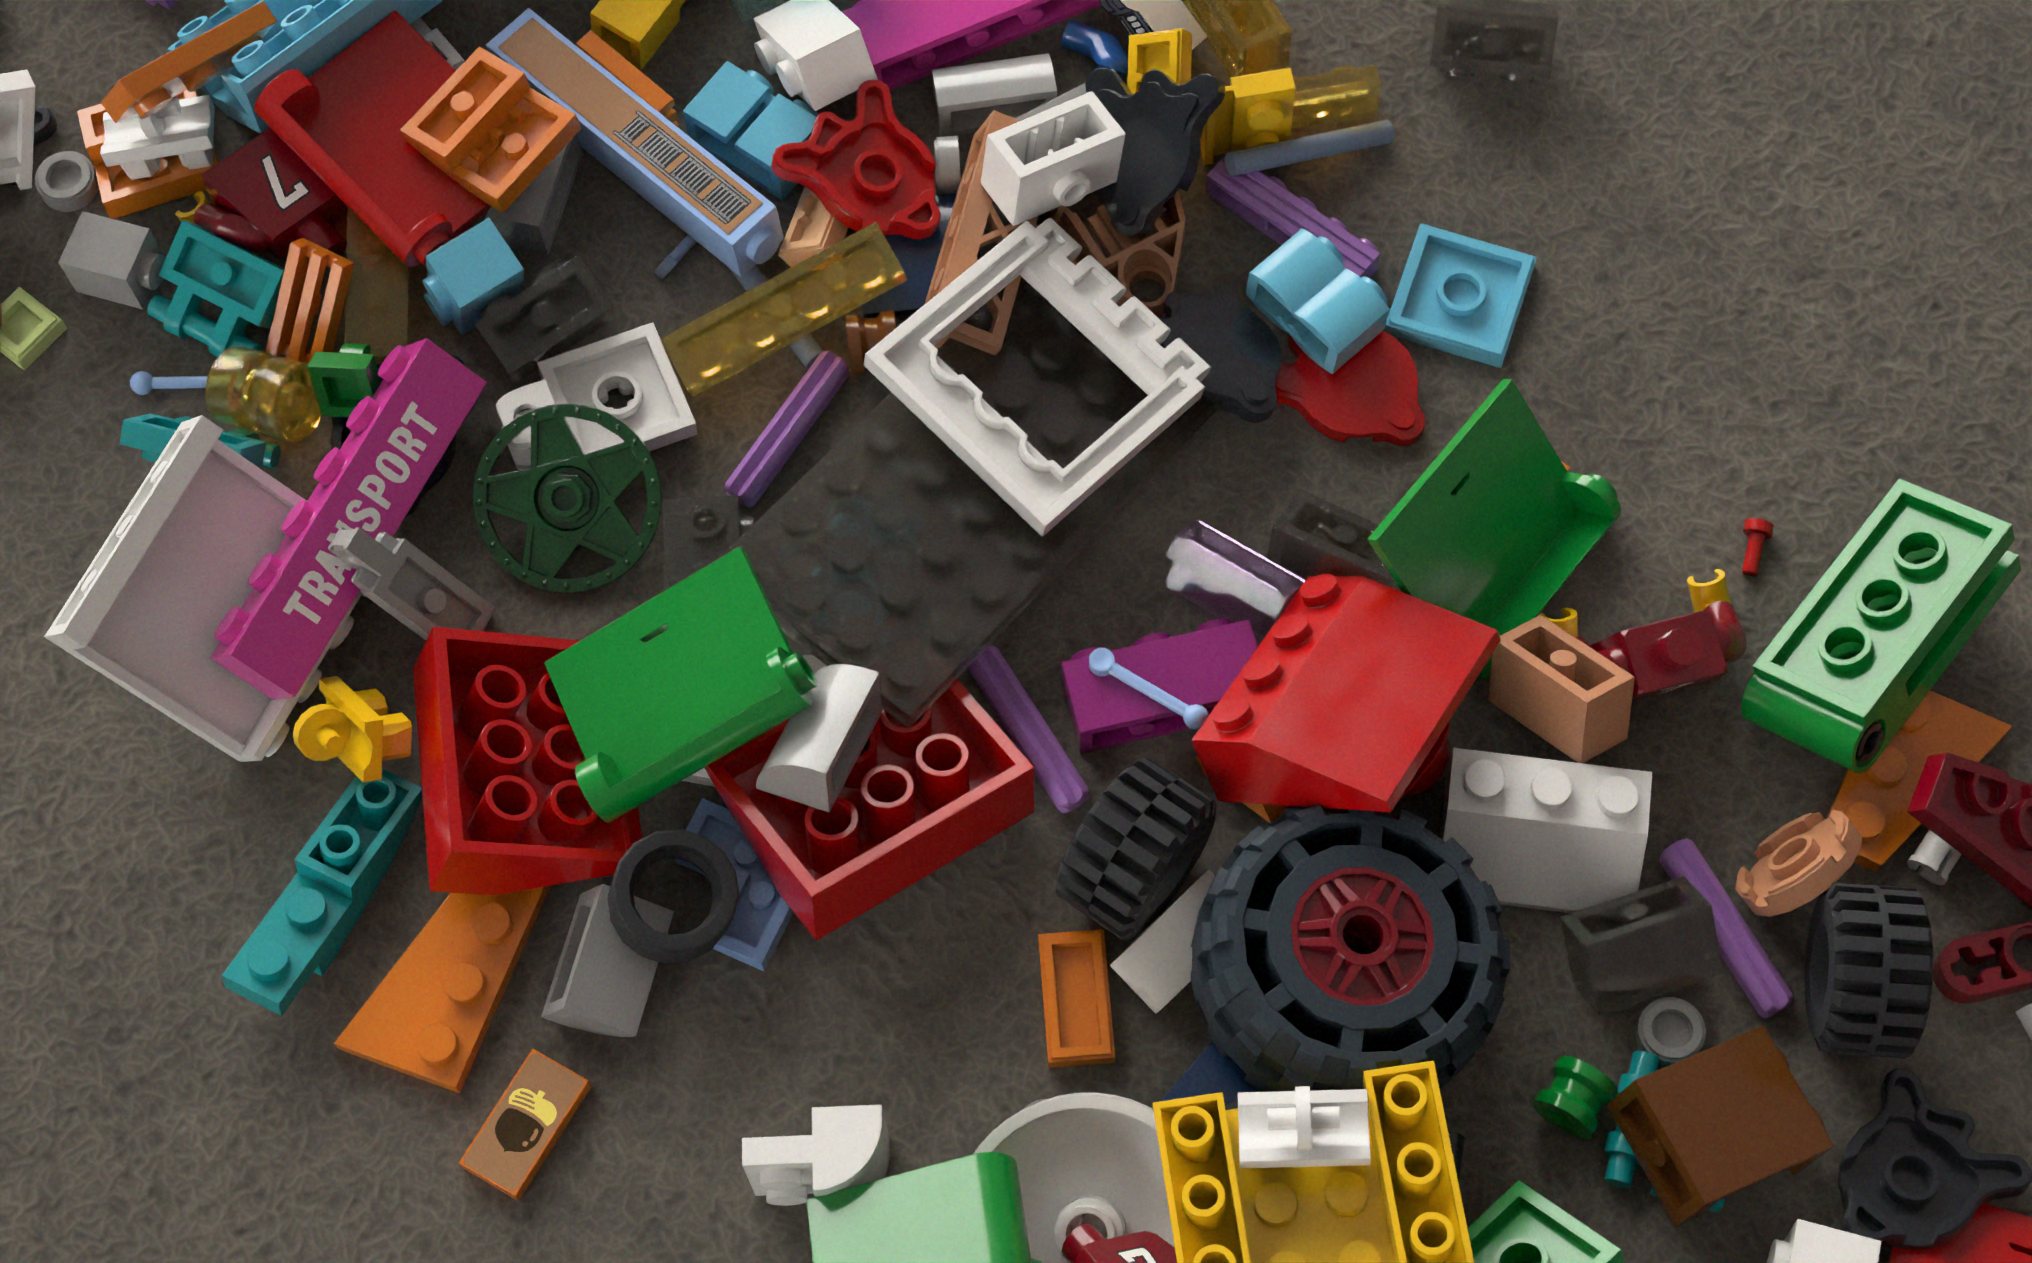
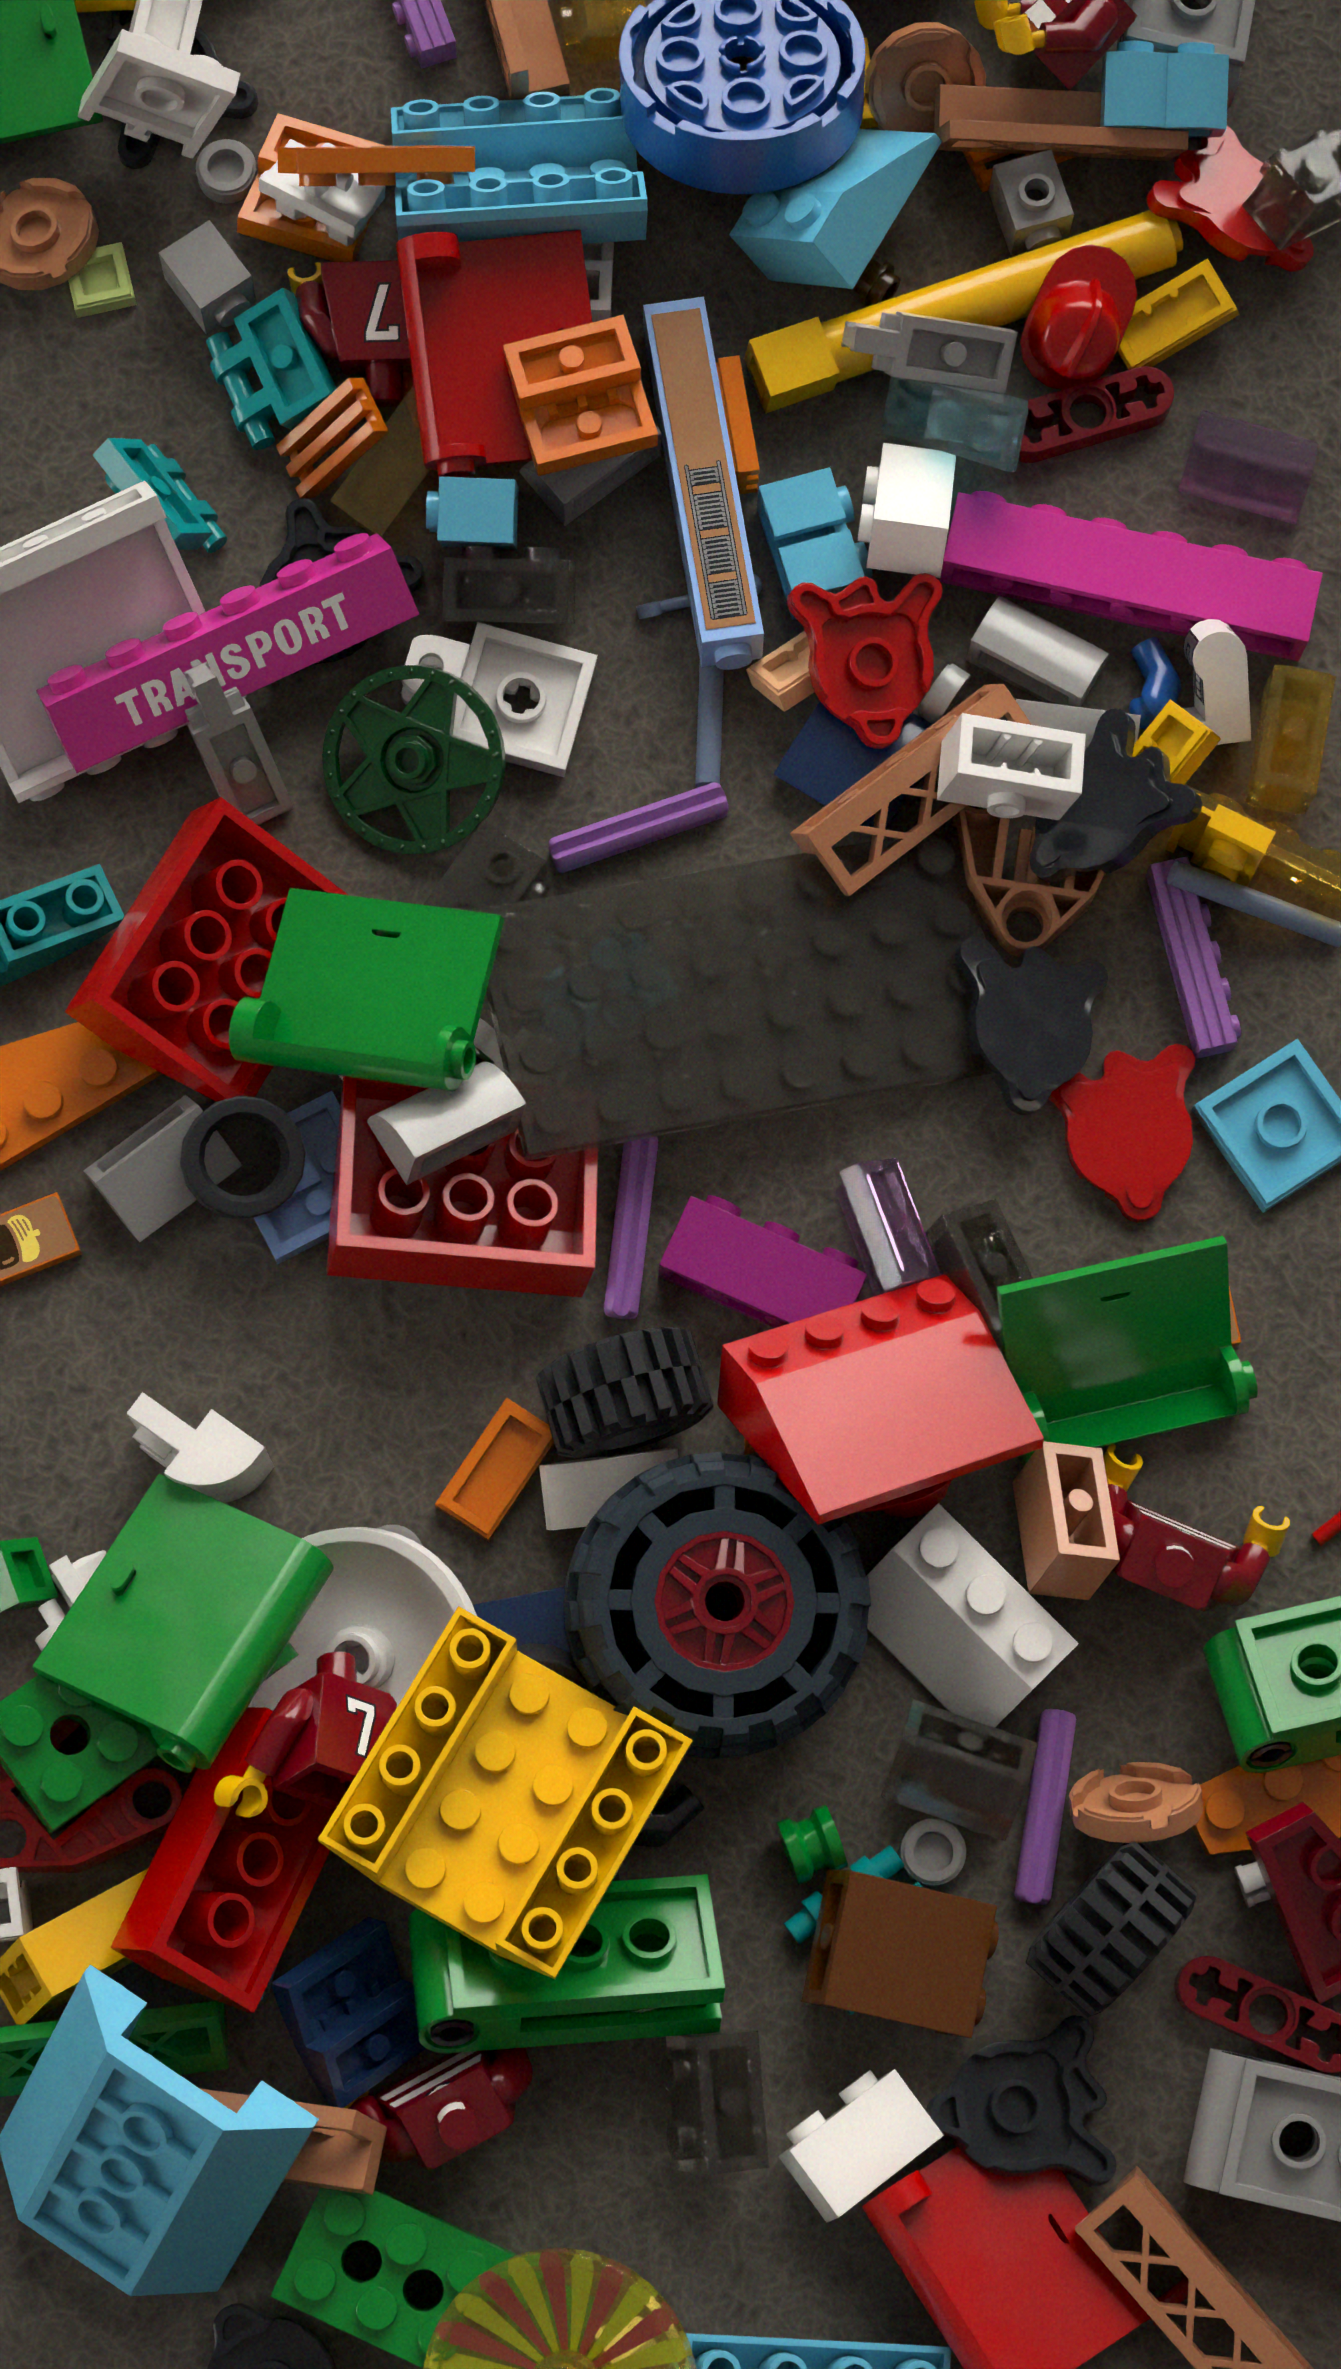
camera: 30 degrees right, 10 degrees up
(144, 383) = (241, 457): light blue hinge -> none
(262, 394) = (243, 489): clear yellow wheel -> none
(343, 378) = (312, 527): green tile -> none
(354, 729) = (106, 830): yellow hips -> none
(784, 309) = (709, 725): clear yellow plate -> none
(865, 334) = (761, 806): reddish brown wheel -> none
(994, 443) = (769, 953): white hinge -> none
(1103, 663) = (721, 1223): light blue hinge -> none
(1303, 1128) = (551, 1715): white hips -> none
(1318, 299) = (1148, 1045): medium azure brick -> none

